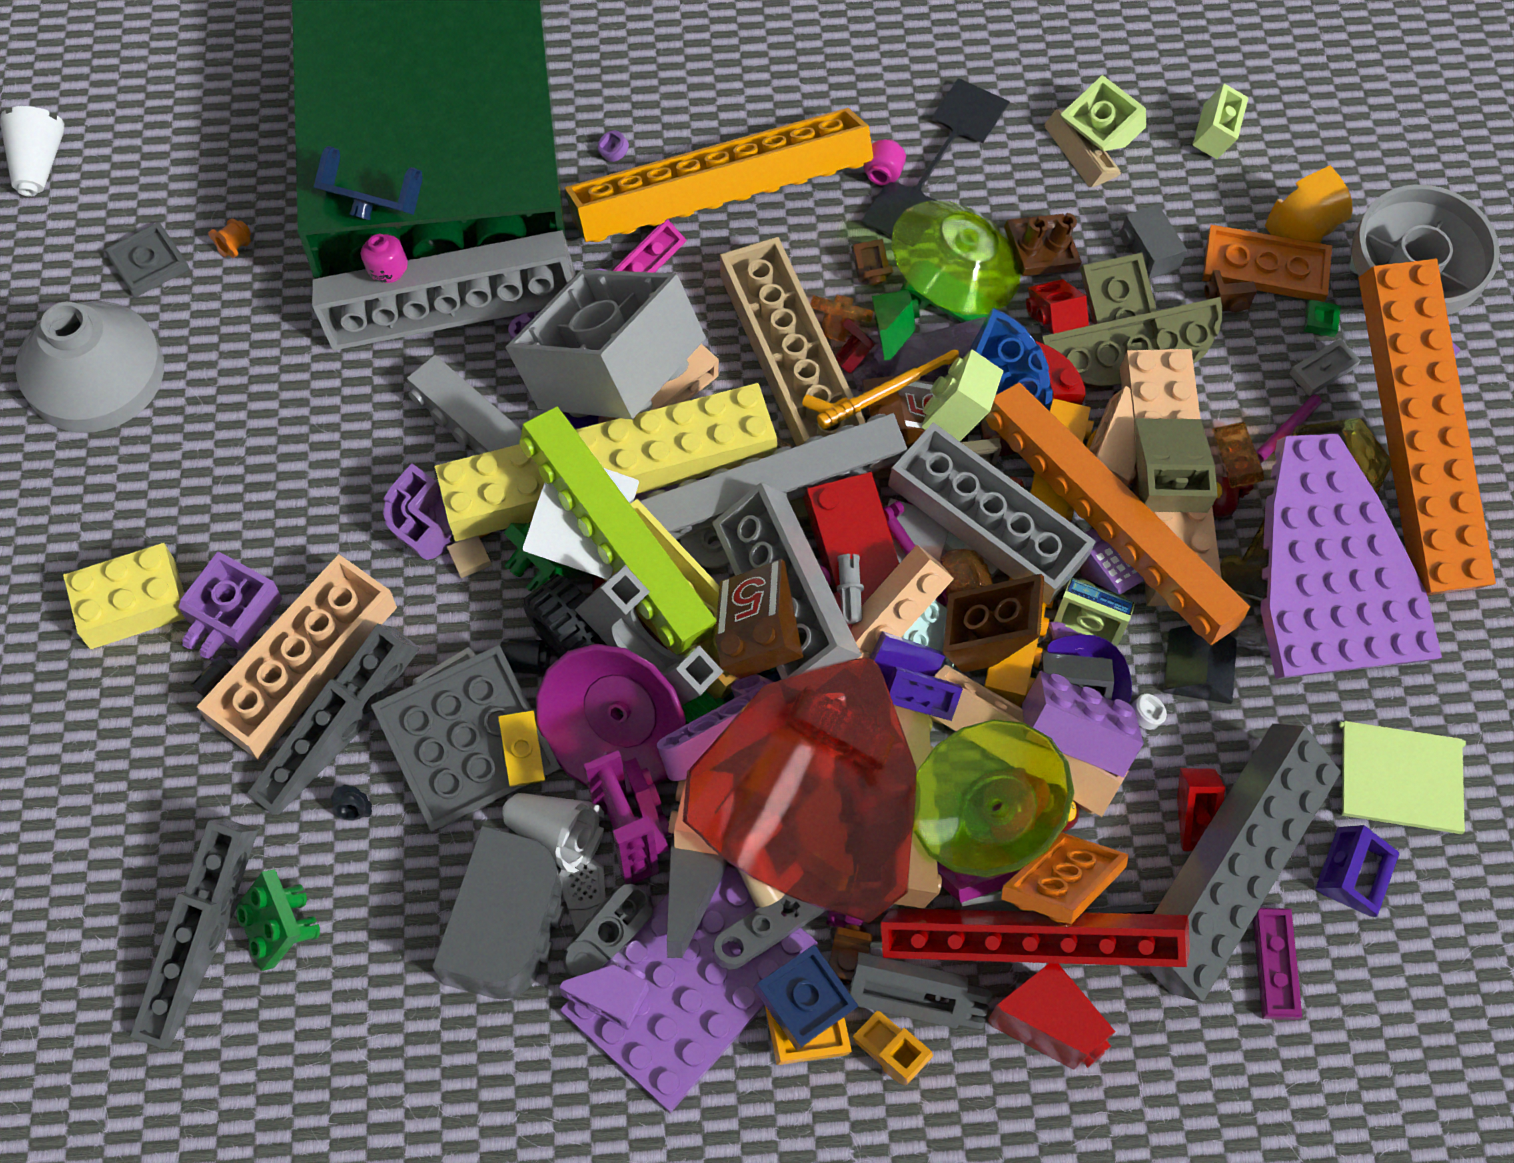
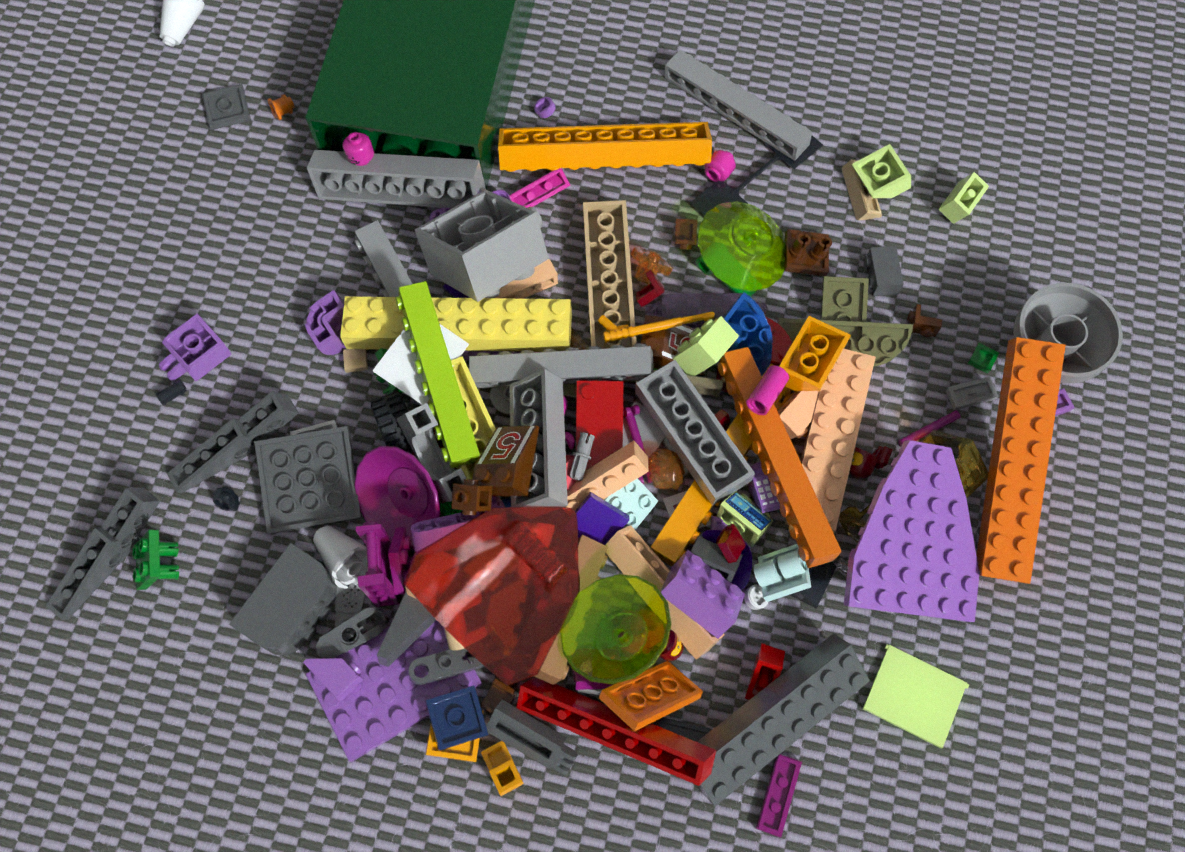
camera: 20 degrees right, 5 degrees up
(89, 366) = (167, 168): light grey cone -> none
(125, 596) = (136, 324): light yellow brick -> none
(297, 657) = (223, 395): light nougat brick -> none
(362, 202) = (350, 109): dark blue piece -> none
(521, 748) = (338, 498): yellow plate -> none
(526, 655) = (365, 436): black brick -> none
(730, 677) = (471, 497): none -> reddish brown brick
(878, 76) = (738, 105): none -> light grey brick
(894, 320) = (682, 279): green slope -> none
(924, 693) = (603, 541): dark purple tile -> none
(992, 622) = (666, 507): reddish brown slope -> none
(1054, 1019) = (611, 784): red slope -> none
(1057, 306) = (797, 299): red brick -> none
(1071, 428) = (767, 390): none -> dark pink pin
(1091, 644) = (730, 543): none -> dark red tile
(1111, 370) = (813, 355): none -> light orange slope
(1174, 465) = (830, 435): olive slope -> none
(1175, 665) = (782, 573): none -> light aqua plate
(1238, 454) = (883, 439): clear orange tile -> none
(1271, 261) = (960, 308): orange plate -> none
(1313, 208) = (1002, 279): light orange brick -> none
(1345, 863) = (849, 744): dark purple tile -> none

